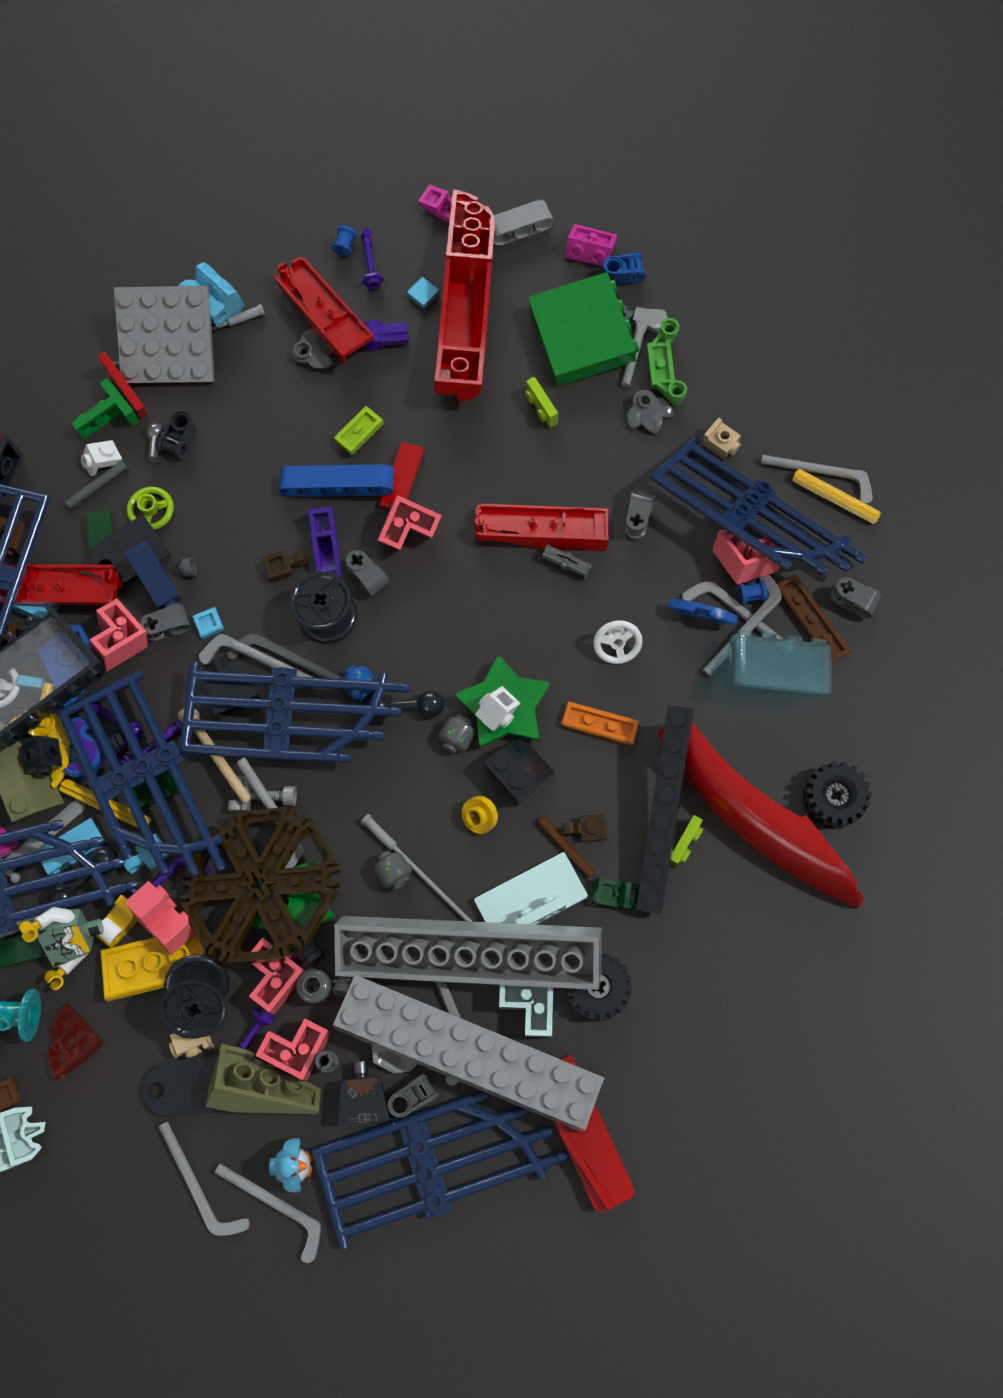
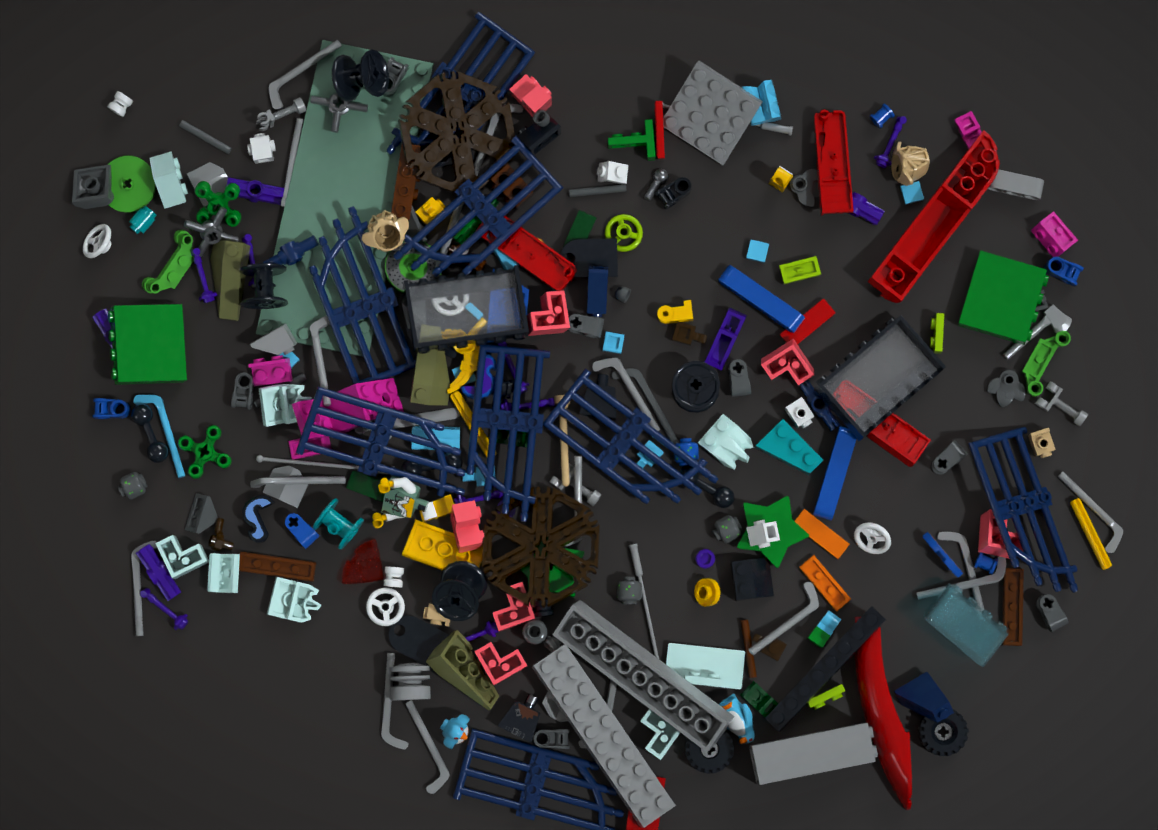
camera: 30 degrees right, 10 degrees up
(42, 756) = (453, 370): black brick -> none
(112, 1032) = (393, 577): none -> white wheel
(128, 1081) = (397, 598): none -> white piece
(202, 1144) = (410, 682): none -> light grey wheel
(250, 556) = (673, 314): none -> yellow leg
(279, 353) = (781, 179): none -> yellow leg
(303, 440) = (757, 251): none -> medium azure tile
(319, 719) = (645, 460): none -> medium azure plate
(321, 1064) = (509, 683): dark grey pin -> none
(396, 646) = (726, 442): none -> light aqua plate
(401, 257) = (911, 162): none -> tan piece
(453, 566) = (800, 406): none -> white brick
(454, 782) = (705, 558): none -> dark purple tile
(467, 607) = (789, 448): none -> teal wedge
(477, 552) = (824, 413): none -> dark blue pin
(511, 477) = (879, 377): none -> clear window
(533, 603) = (835, 474): none -> blue beam
(563, 674) = (822, 534): none -> orange tile
(566, 561) = (884, 469): dark grey pin -> none
(603, 754) = (813, 605): none -> light grey piece
(615, 932) = (742, 722): none -> medium azure animal
(633, 772) = (824, 629): none -> leg
(695, 403) = (1079, 417): none -> light grey bar
(716, 911) = (813, 753): none -> light grey container
(794, 770) = (924, 698): none -> dark blue slope

